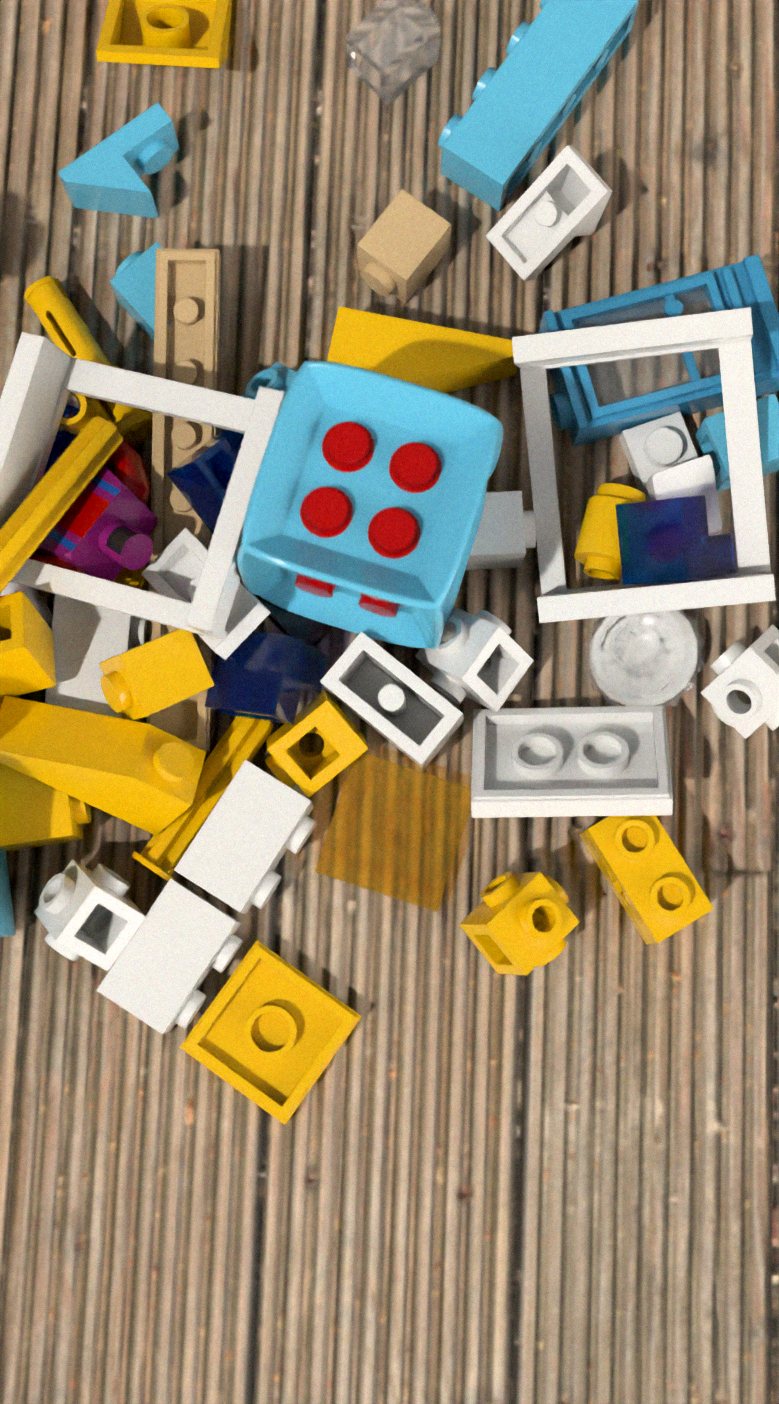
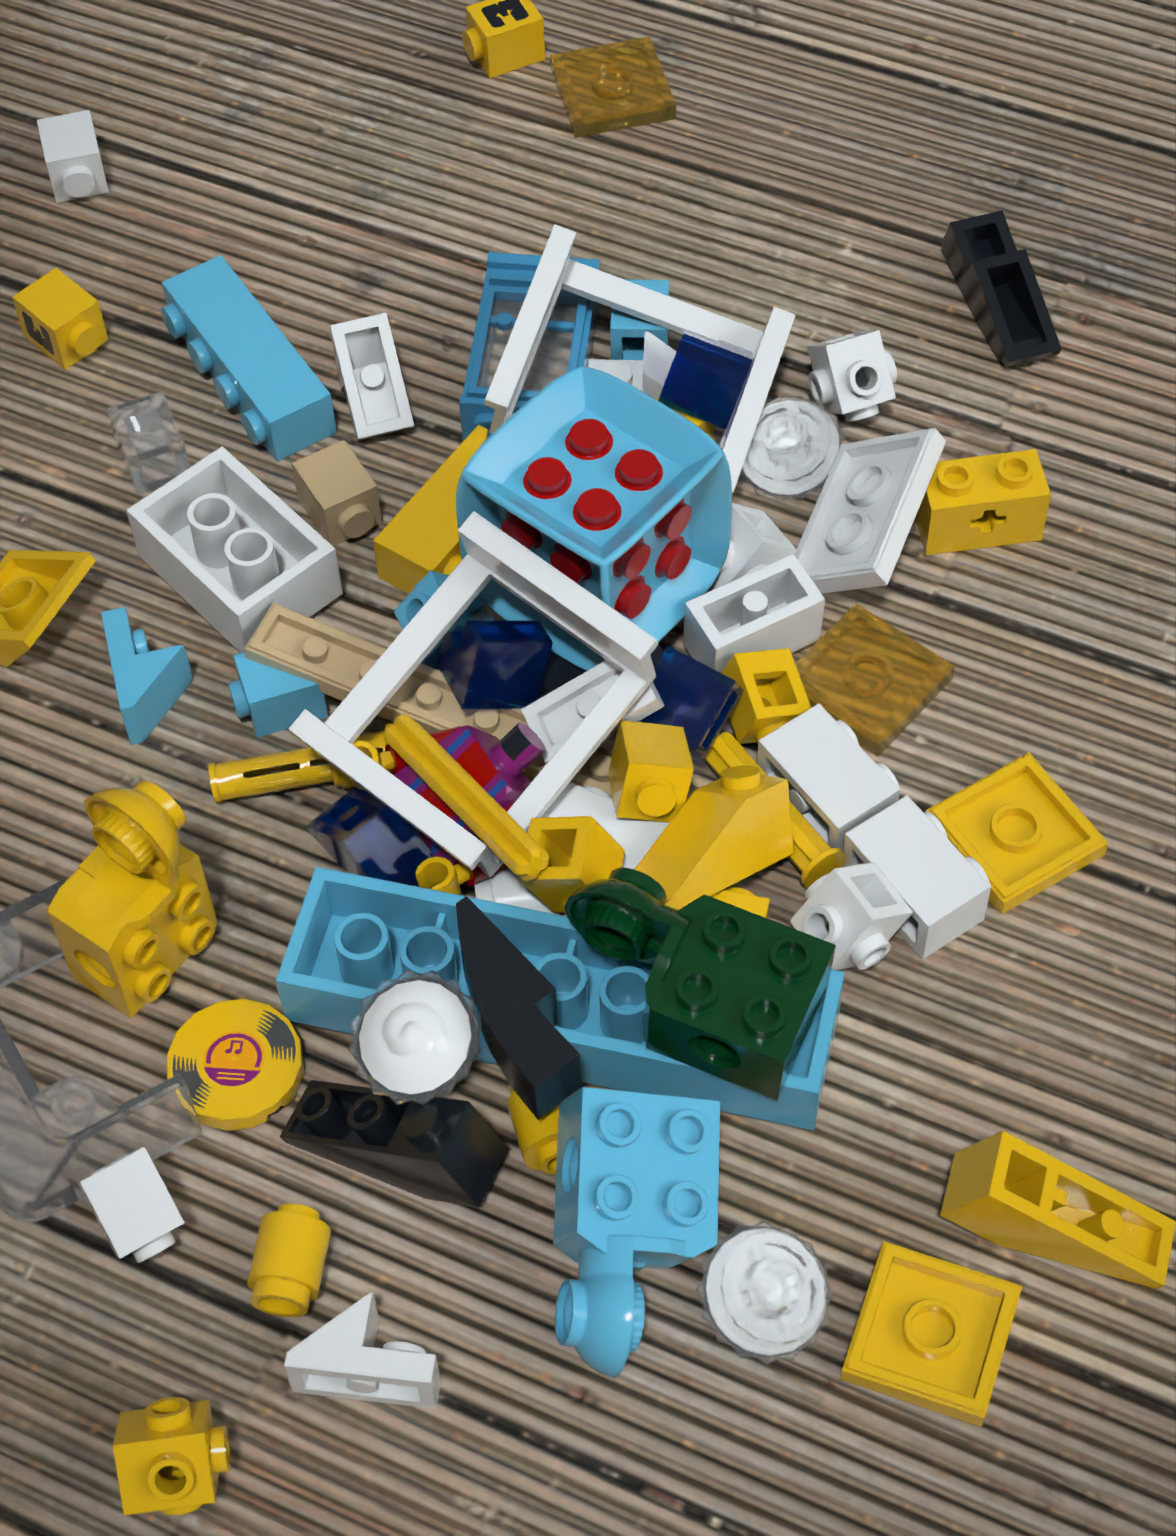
camera: 65 degrees left, 25 degrees down
(283, 184) = (233, 547): none -> white brick
(520, 922) = (992, 597): yellow brick -> none

